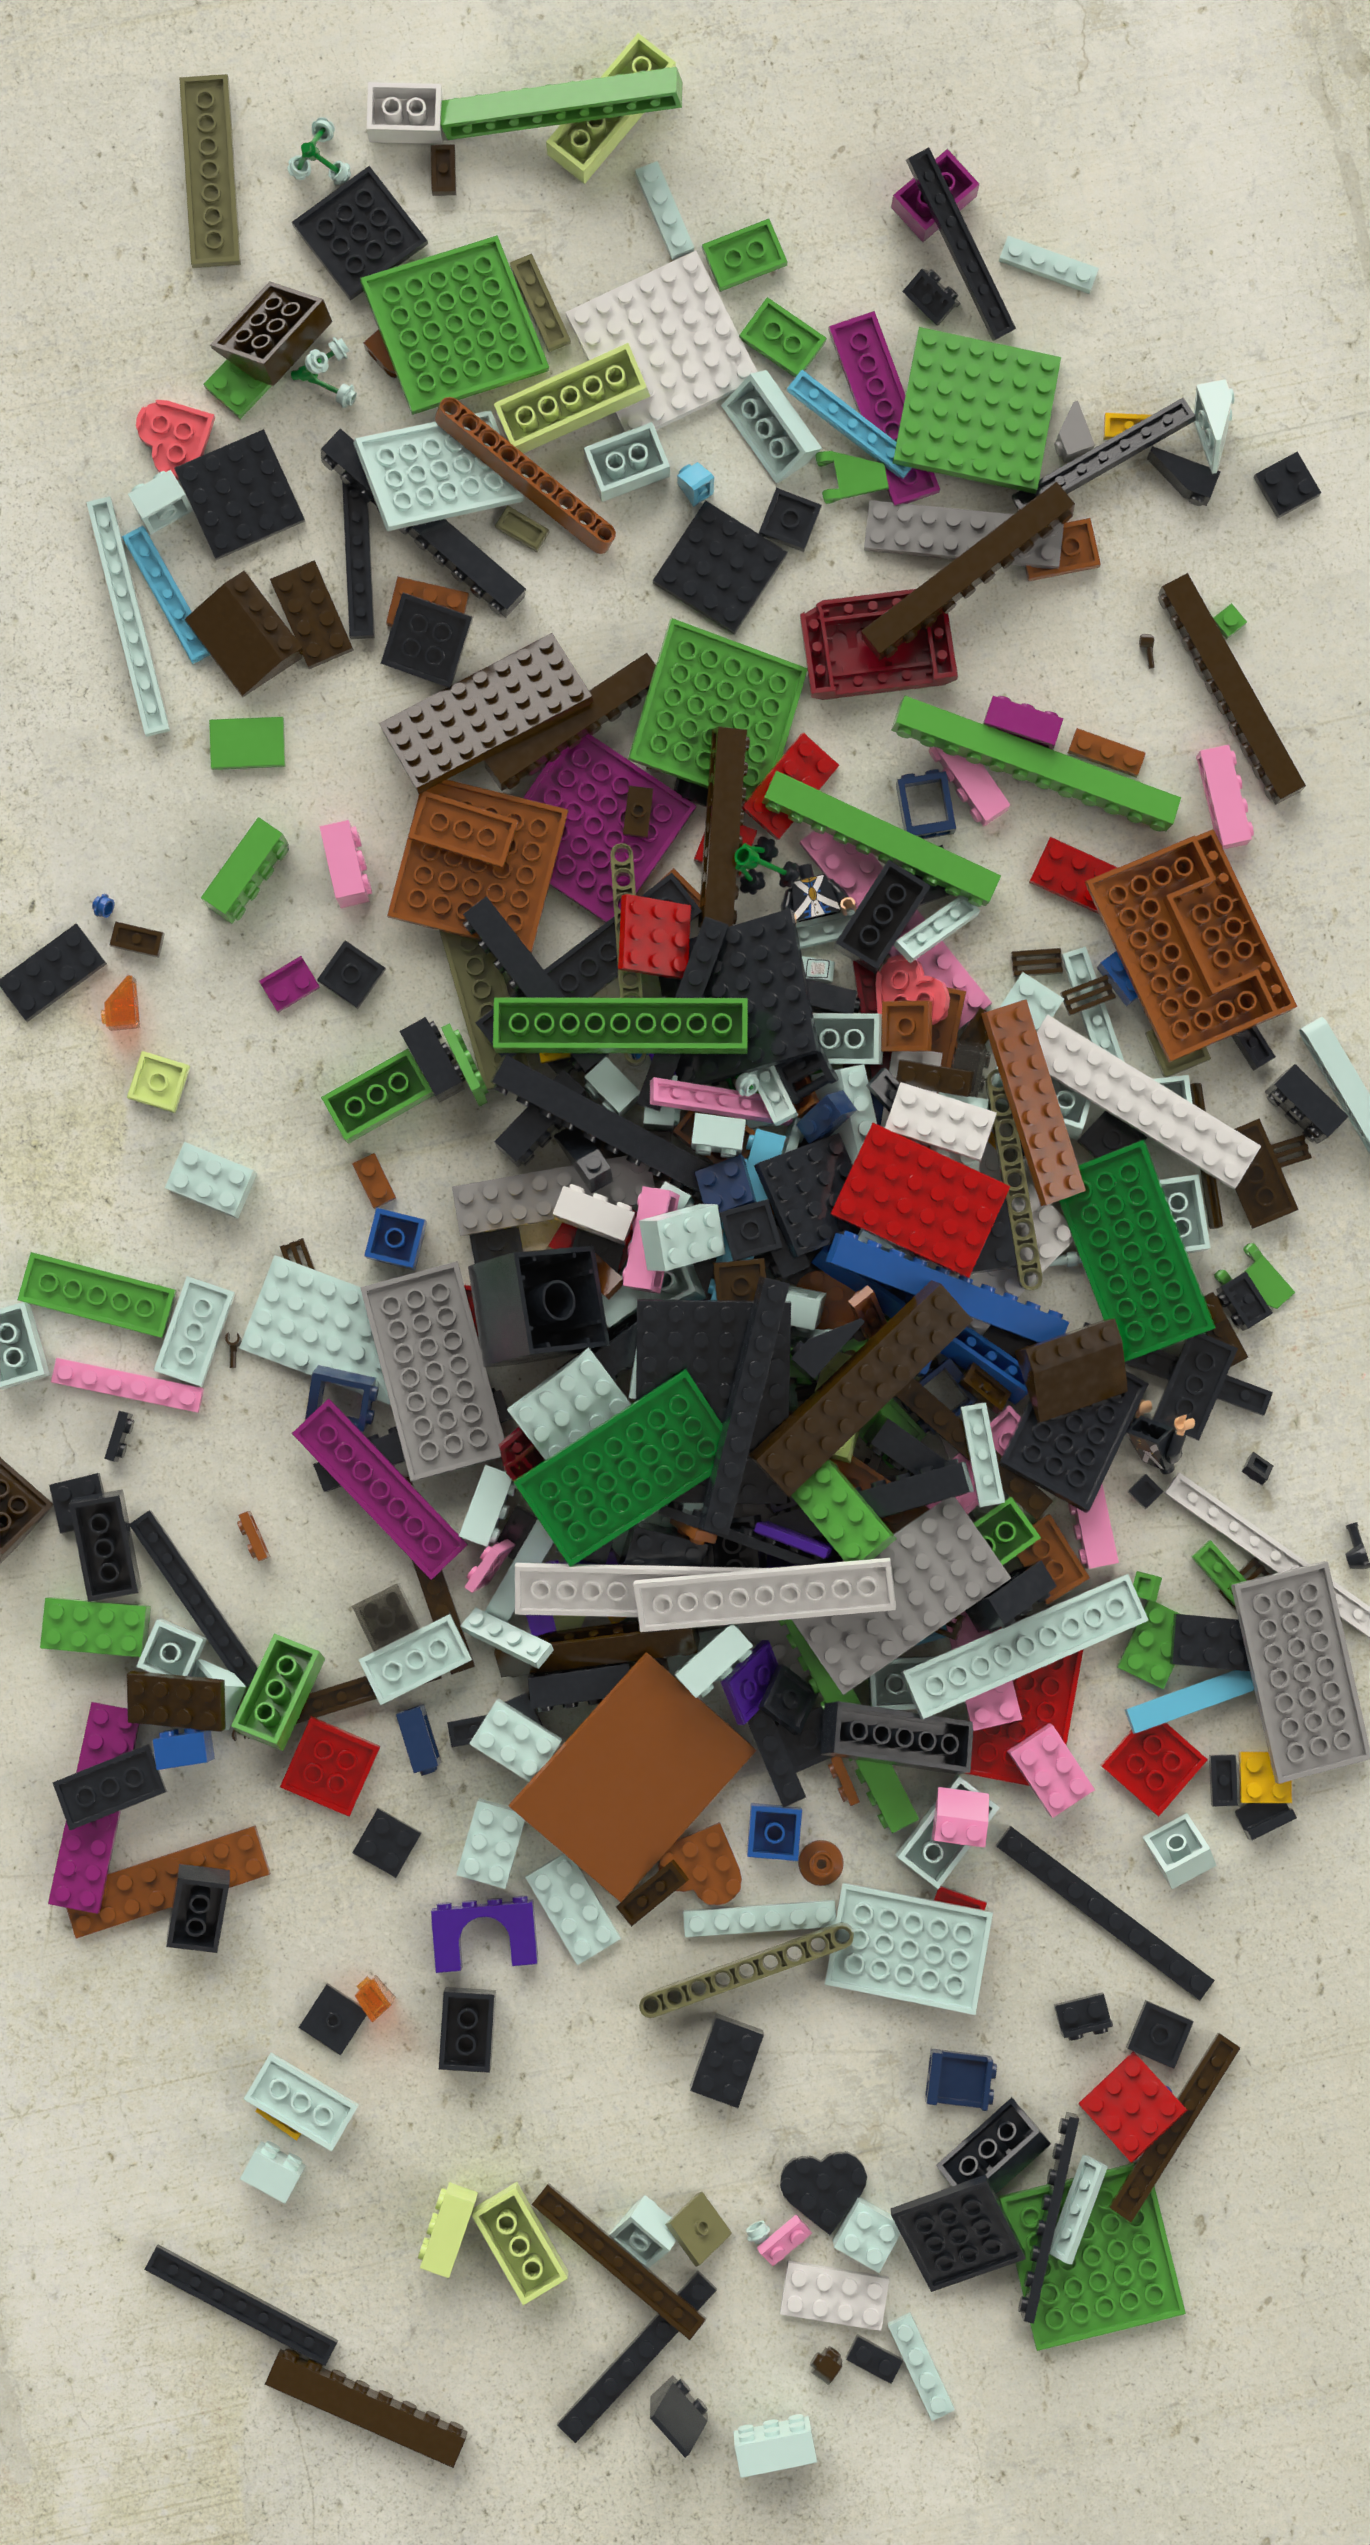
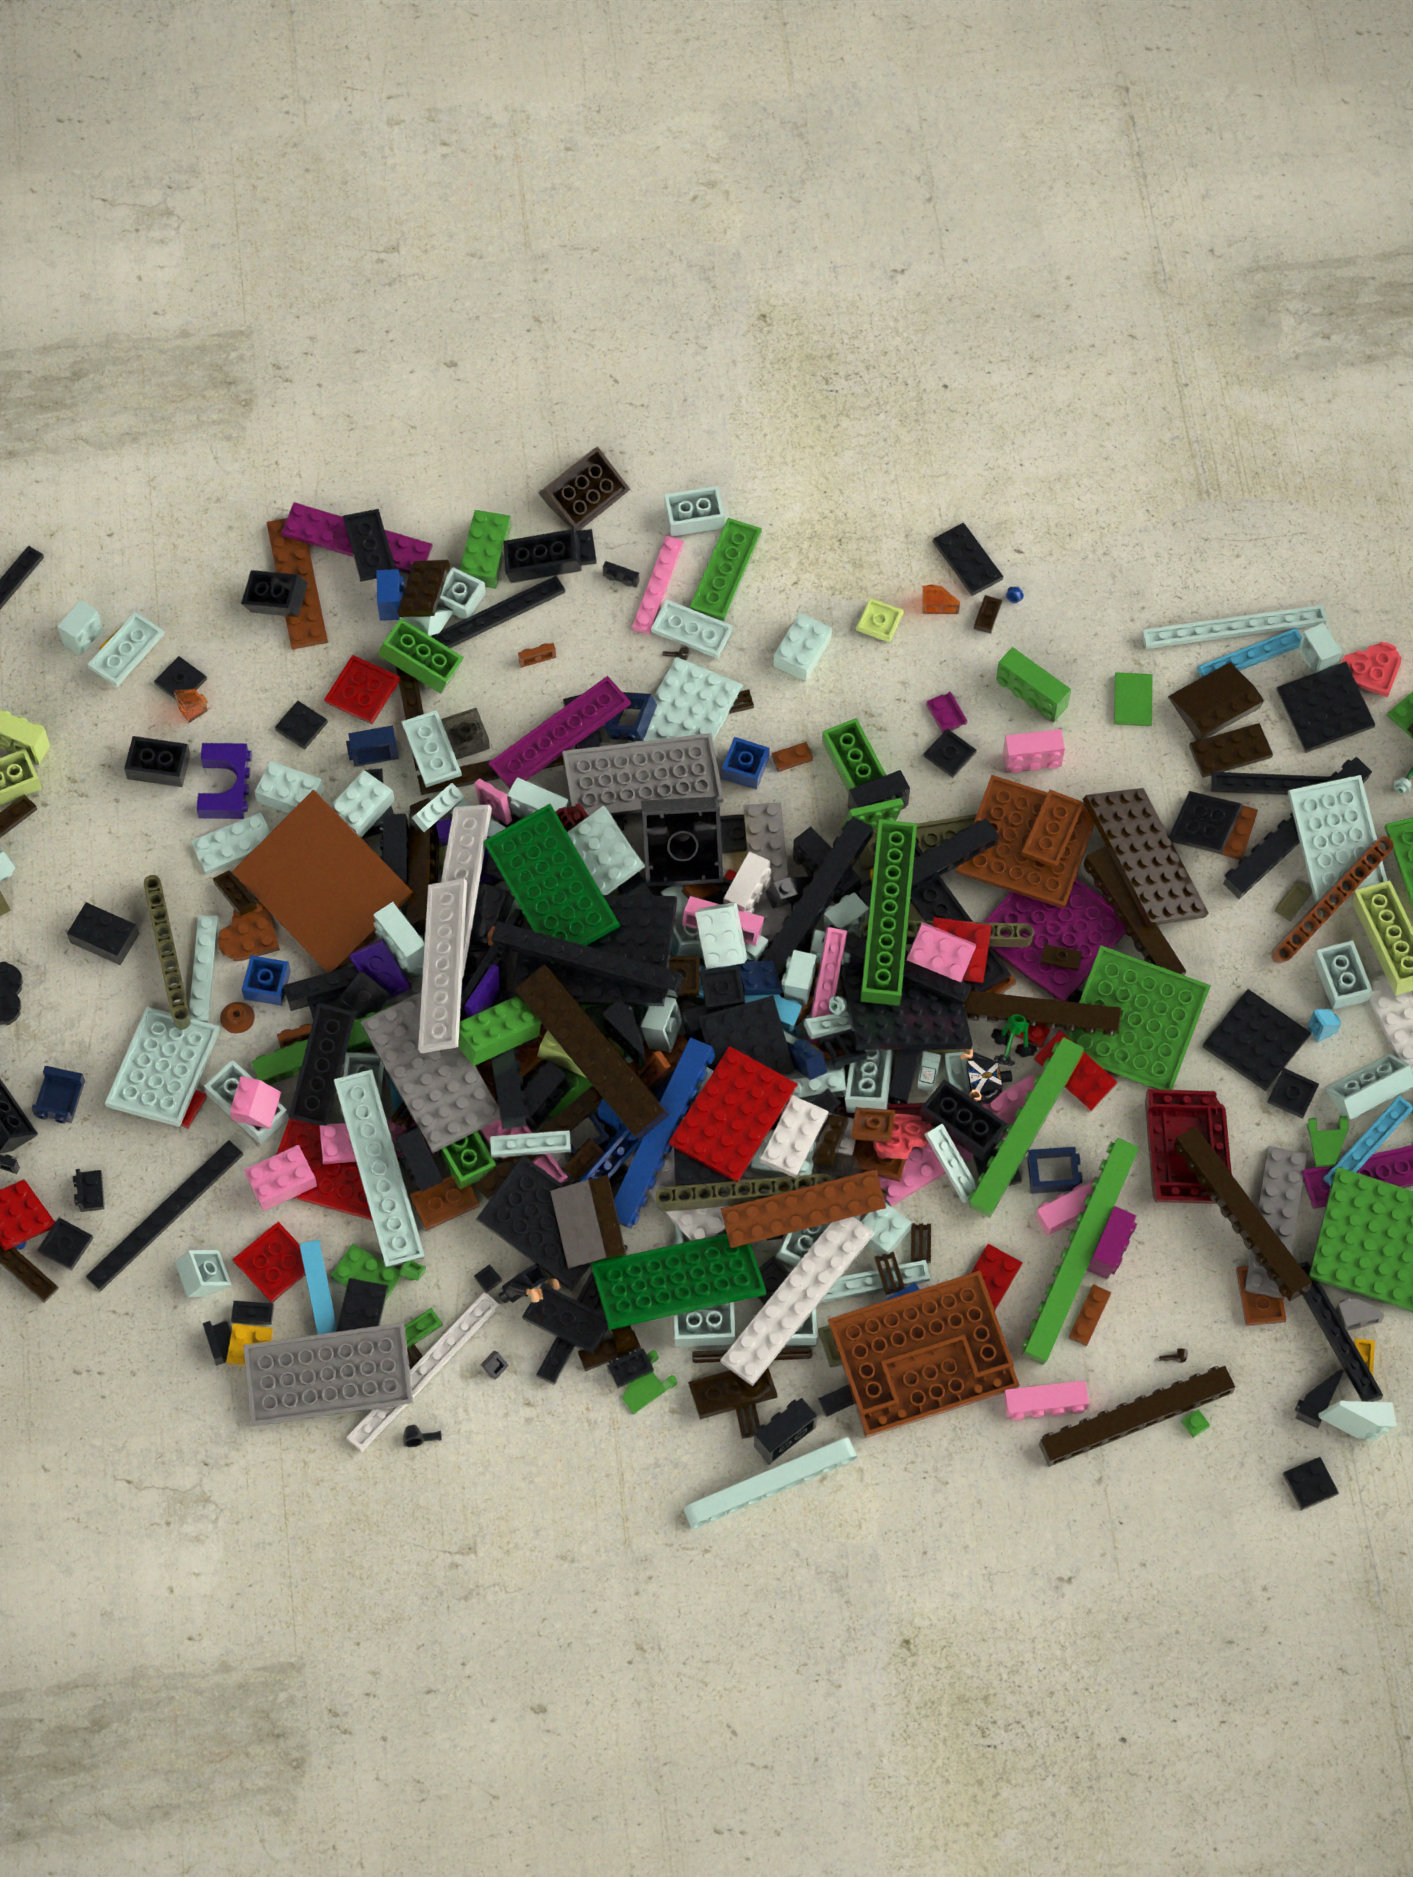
camera: 100 degrees right, 20 degrees down
(669, 955) = (941, 952): none -> bright pink brick
(1095, 1534) = (464, 1236): bright pink brick -> none

